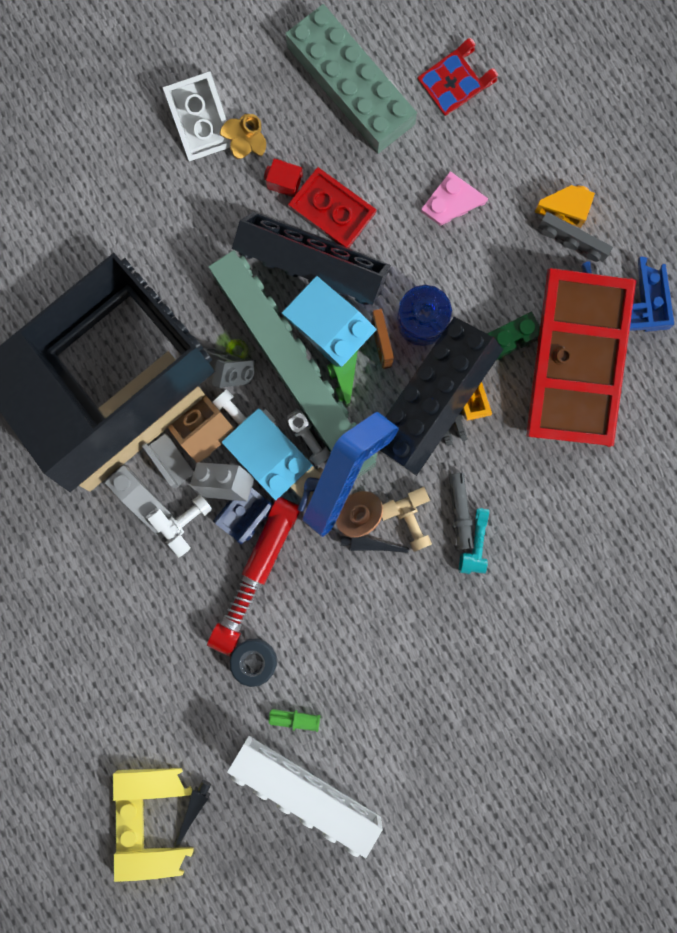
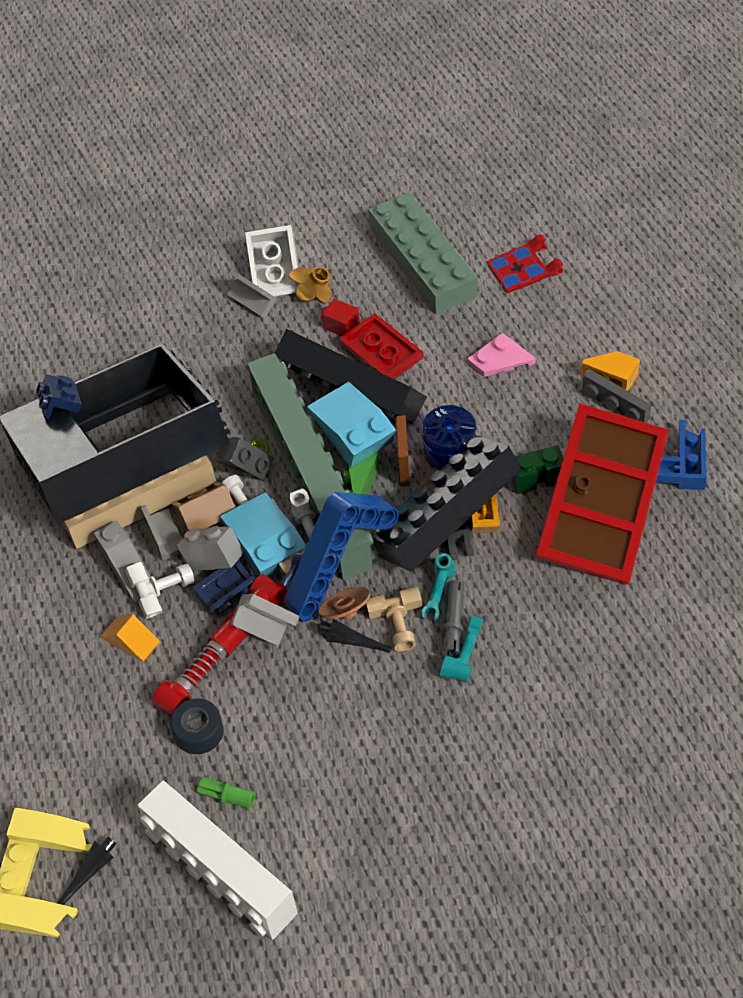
camera: 10 degrees right, 30 degrees down
(26, 343) = (58, 393): none -> dark blue bracket
(166, 579) = (131, 636): none -> light orange slope
(185, 160) = (251, 295): none -> light grey panel
(289, 547) = (262, 618): none -> light grey panel
(442, 476) = (442, 574): none -> teal brick

